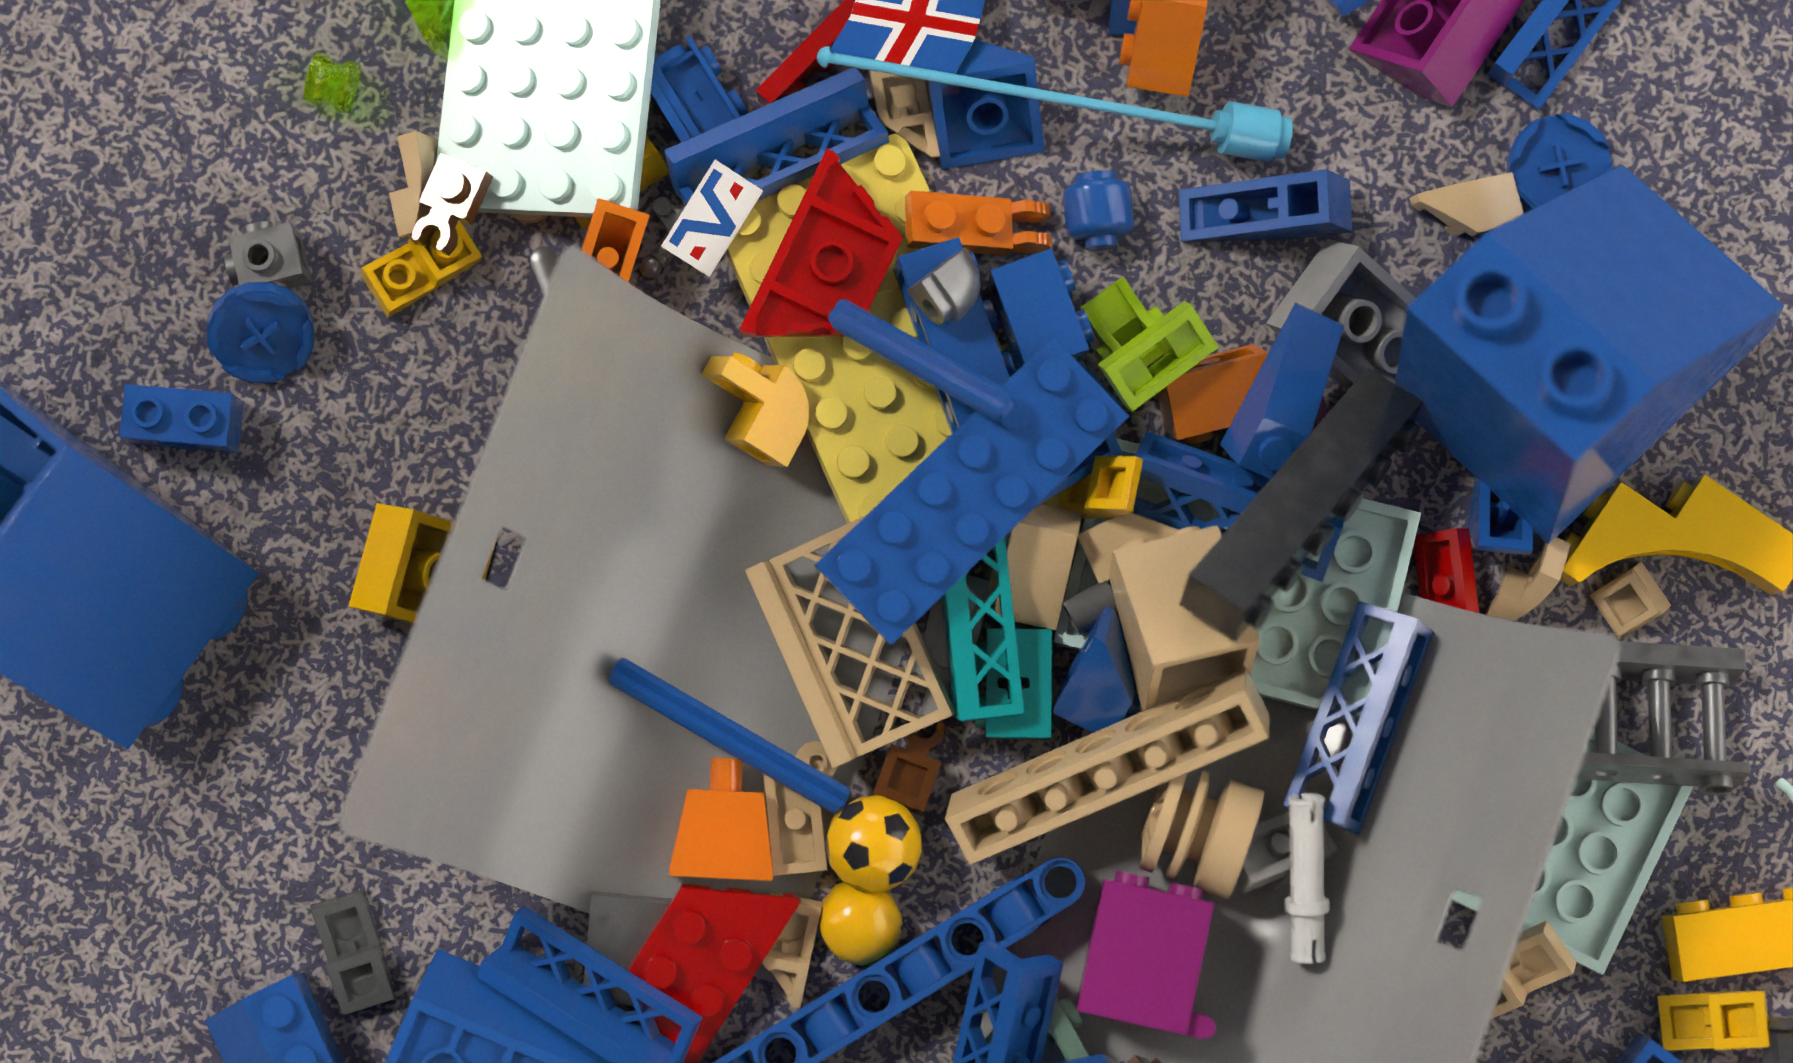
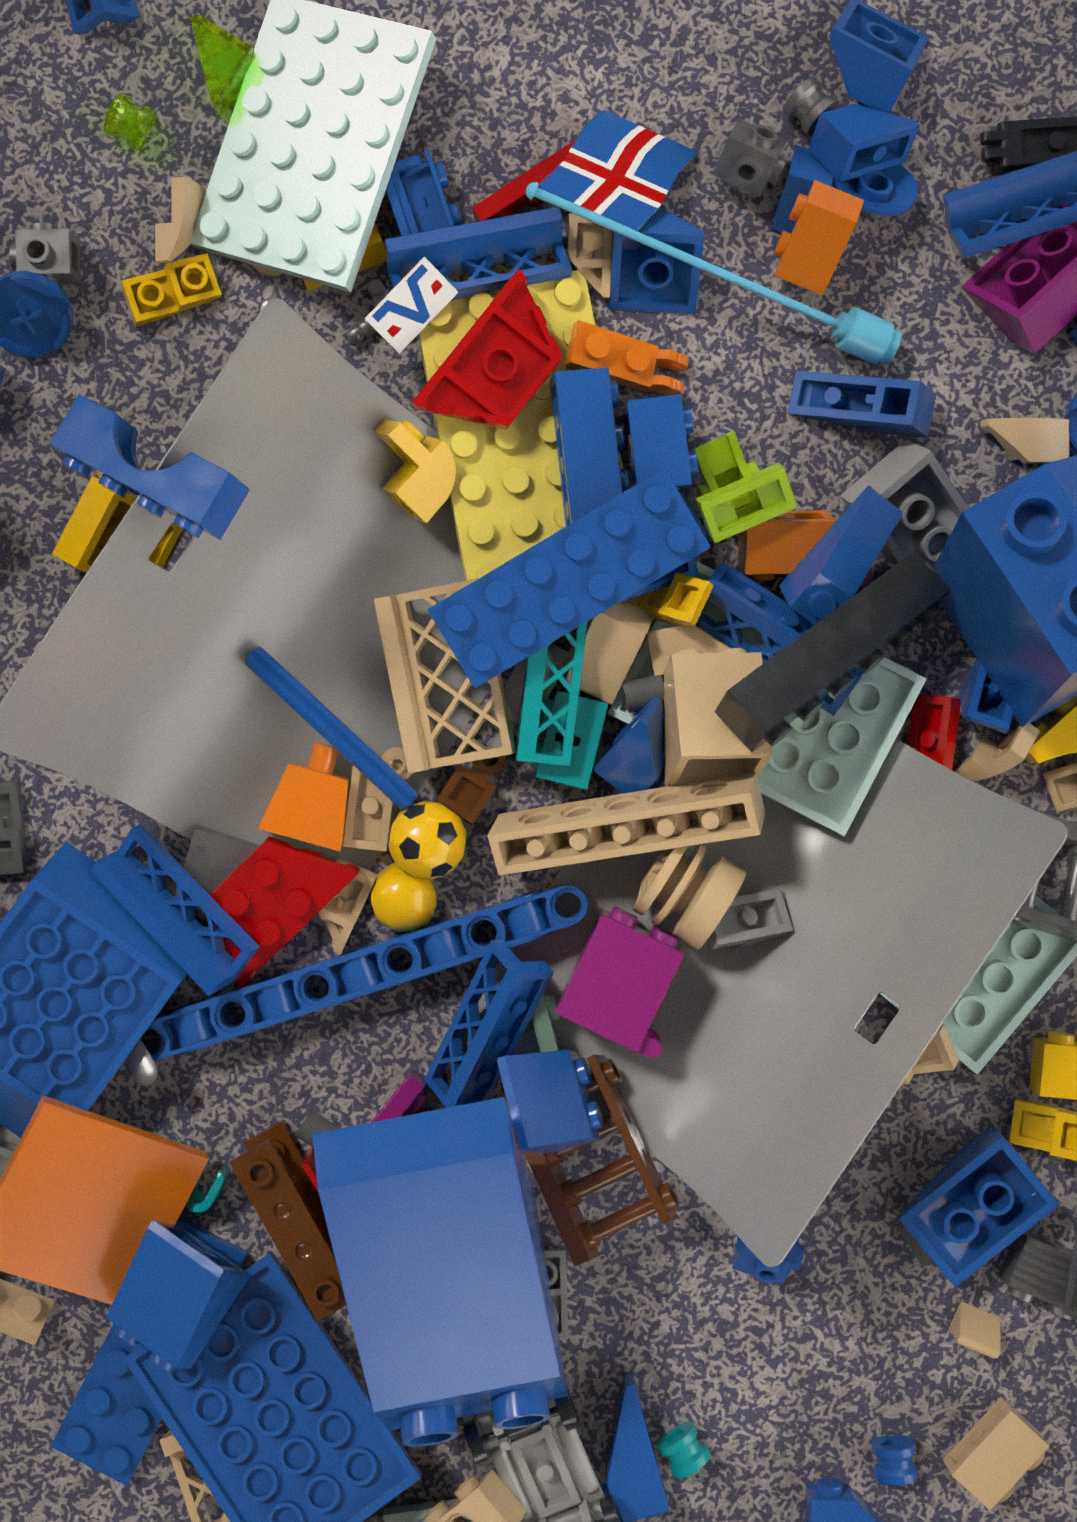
camera: 15 degrees right, 5 degrees up
(452, 195) = (206, 237): plate -> none
(525, 485) = (192, 489): none -> blue arch
(615, 236) = (328, 304): orange slope -> none
(921, 360) = (553, 462): blue axle -> none
(948, 289) = (589, 408): flat silver piece -> none
(1098, 209) = (727, 371): blue head -> none
(1306, 896) = (759, 966): white pin -> none
(1379, 716) = (849, 840): blue fence -> none

